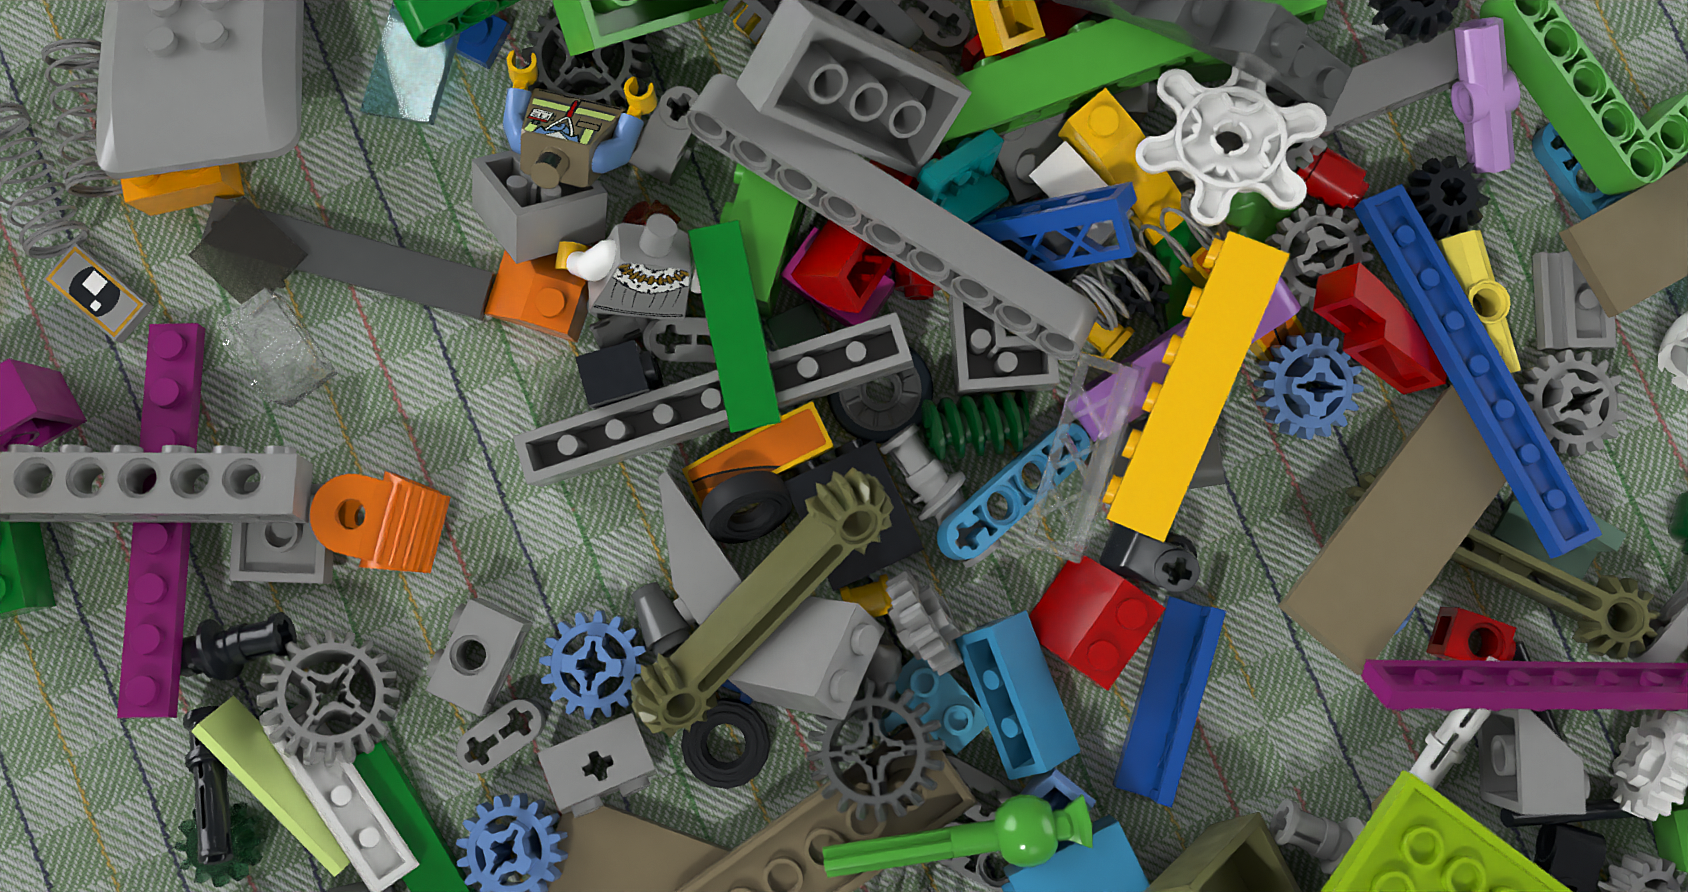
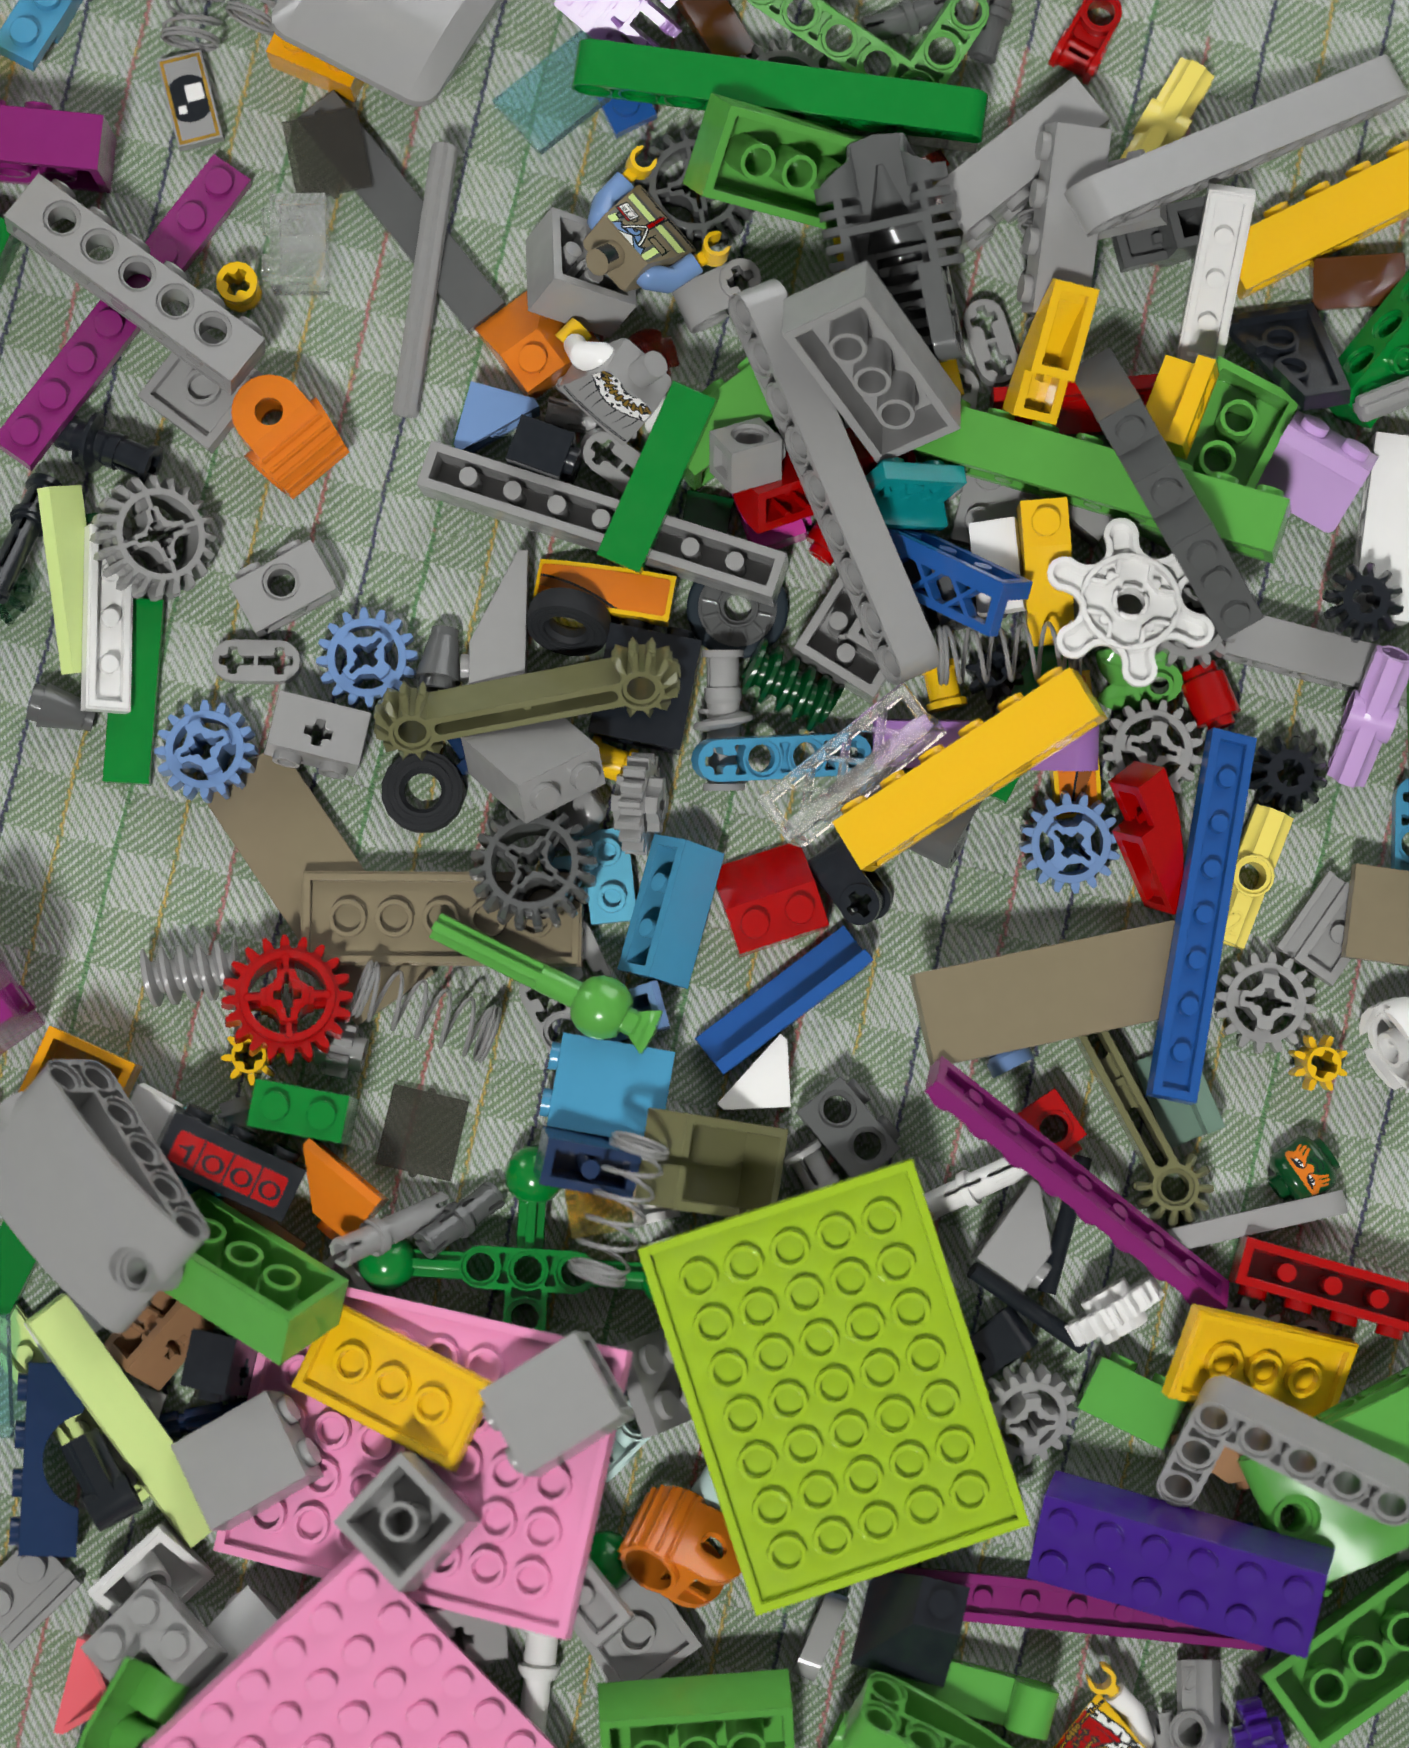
camera: 35 degrees right, 0 degrees up
(242, 411) = (235, 273): none -> yellow bush
(408, 300) = (425, 280): none -> light grey axle
(550, 378) = (490, 415): none -> medium blue slope
(800, 250) = (746, 455): none -> light grey brick
(1204, 788) = (764, 1083): none -> white slope
(1303, 778) = (839, 1137): none -> dark grey brick
(1653, 421) = (1311, 1074): none -> yellow gear

